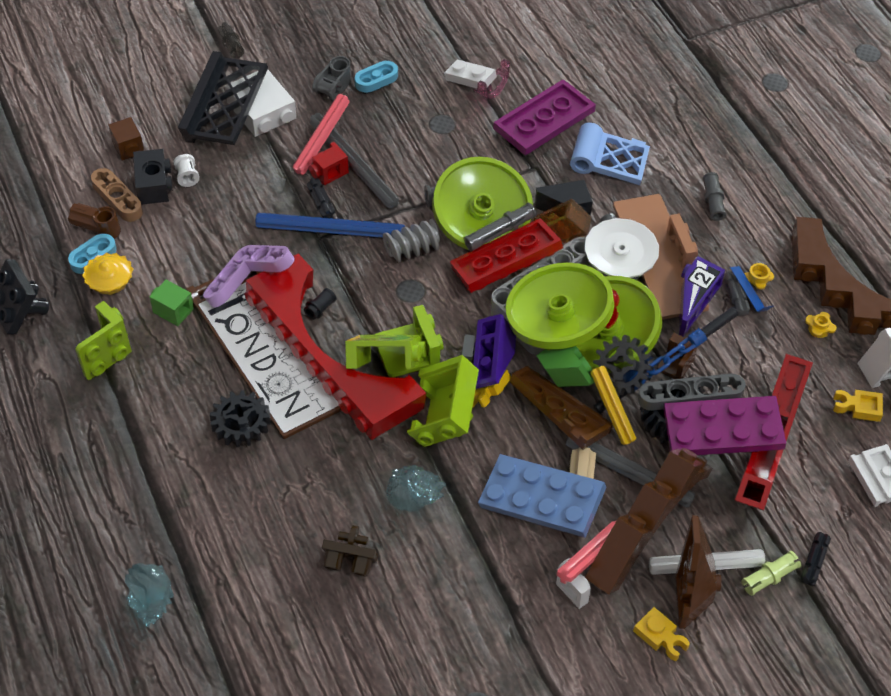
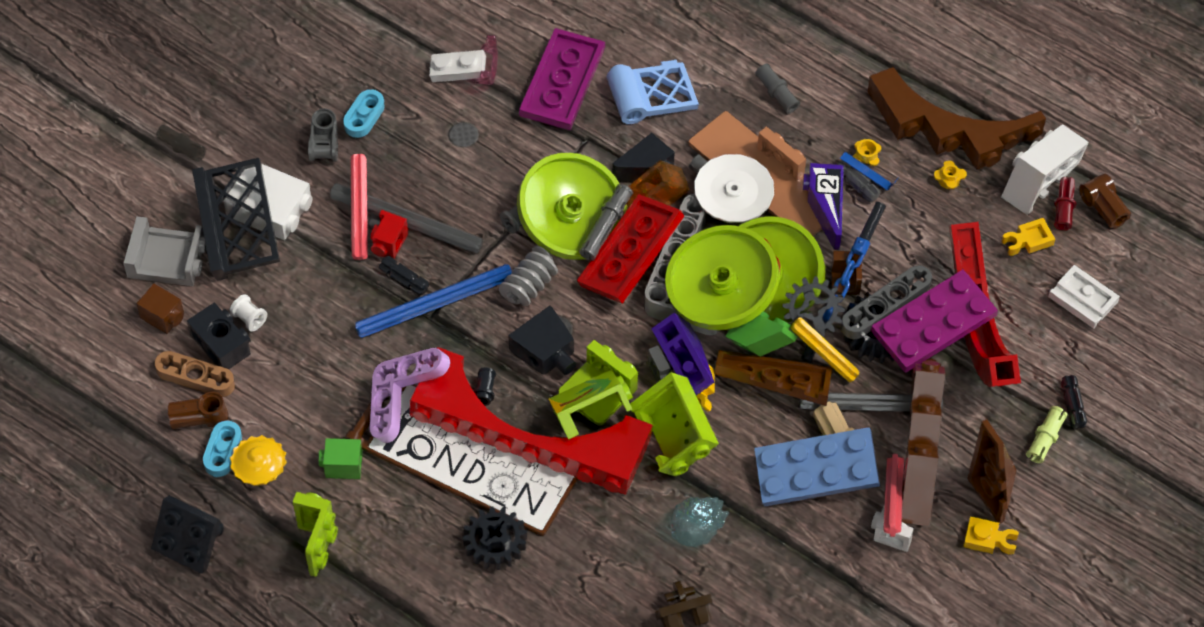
camera: 30 degrees left, 5 degrees up
(156, 104) = (164, 254): none -> light grey panel
(388, 293) = (544, 343): none -> black torso
(723, 561) = (1009, 437): white axle -> none

